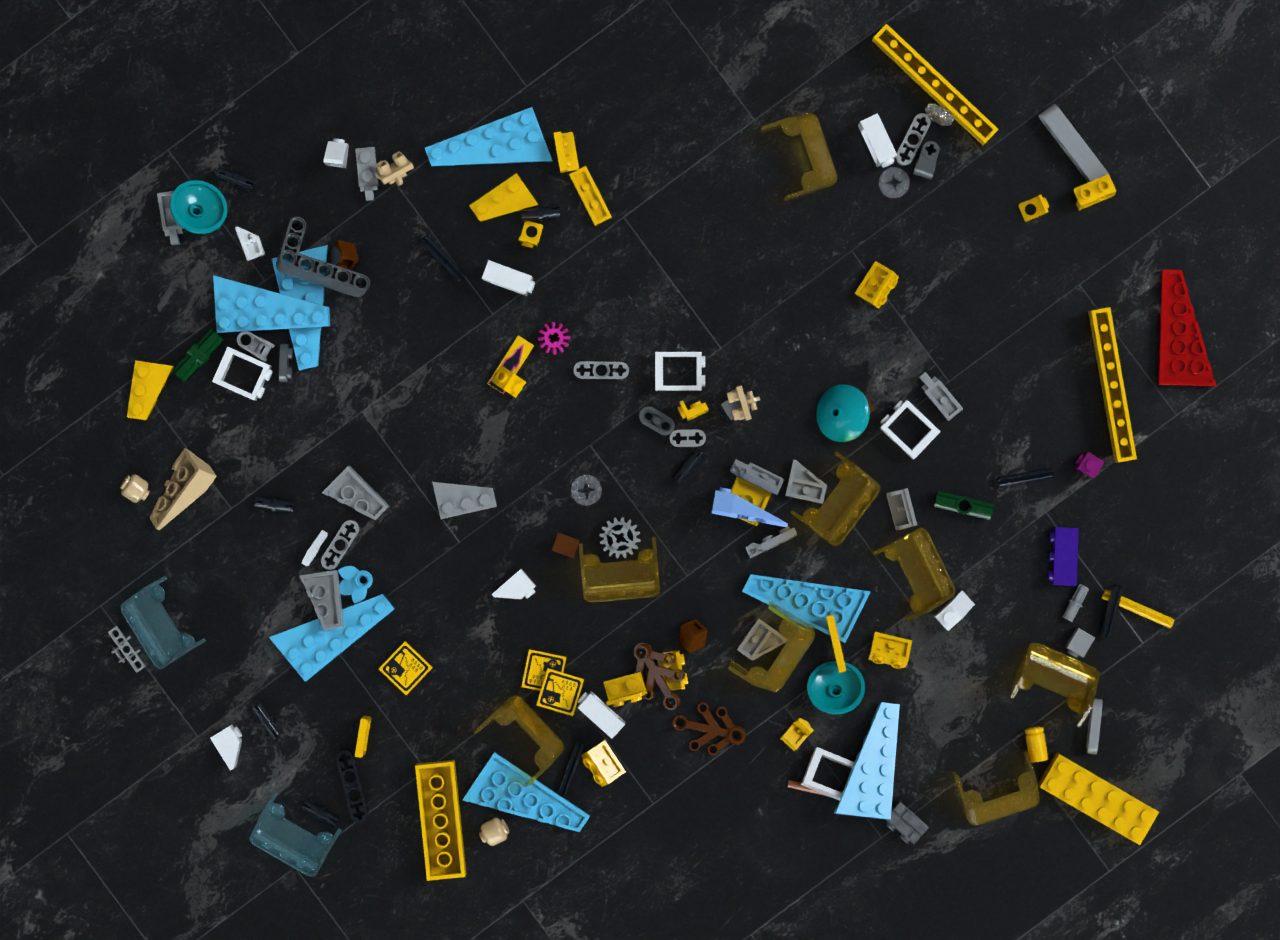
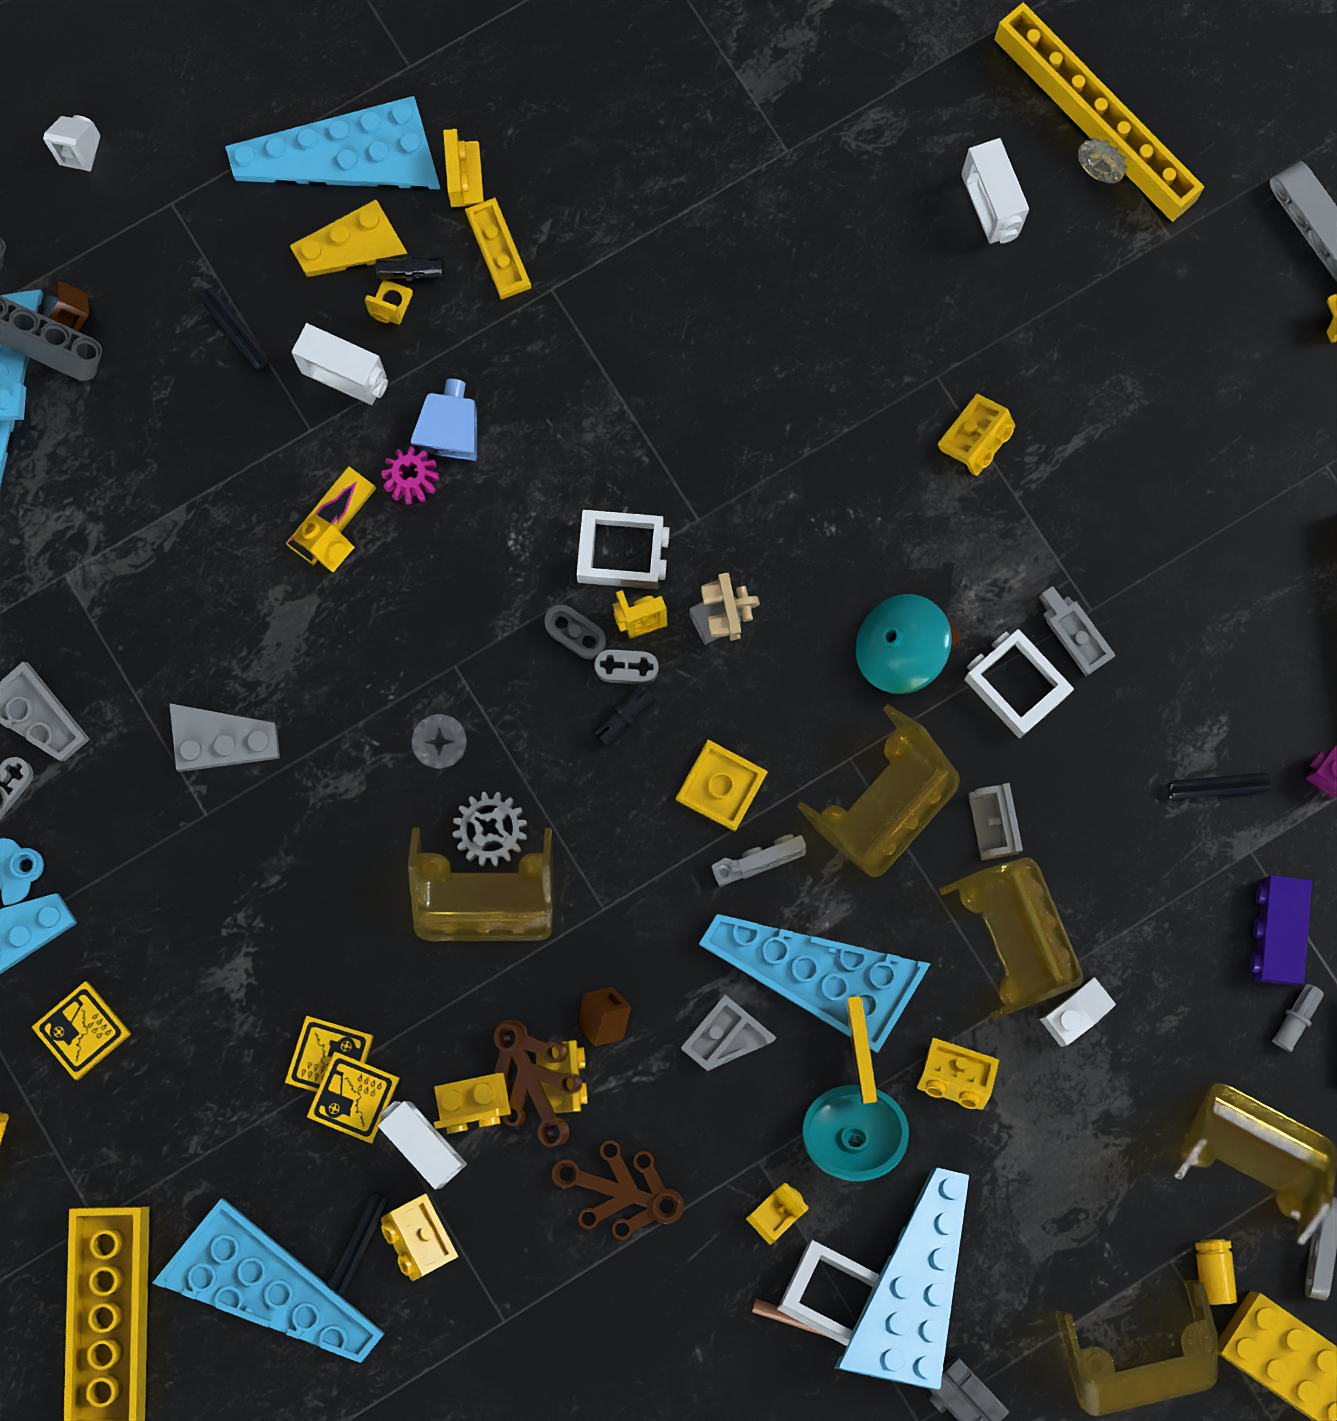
camera: 10 degrees right, 10 degrees down
(366, 171) = (124, 177): light grey hinge -> none
(394, 171) = (153, 176): tan hips -> none
(494, 831) = (203, 1348): tan head -> none
(516, 587) = (295, 900): white slope -> none
(517, 709) = (324, 1192): clear yellow windscreen -> none
(565, 545) = (391, 833): reddish brown panel -> none
(572, 305) = (447, 424): none -> light blue torso
(587, 365) = (478, 526): light grey beam -> none
(733, 506) = (701, 790): light blue wedge -> none
(757, 476) = (744, 742): light grey hinge -> none
(799, 638) = (795, 1039): clear yellow windscreen -> none
(805, 485) = (826, 765): light grey wing -> none
(823, 170) = (895, 241): clear yellow windscreen -> none
(888, 189) = (1007, 279): clear gear -> none
(905, 141) = (1051, 189): light grey beam -> none
(926, 163) = (1076, 237): dark grey piece -> none
(951, 502) = (1127, 829): dark green piece -> none
(1041, 207) = (1267, 324): yellow bracket -> none
(1079, 643) = (1303, 1090): light grey brick -> none

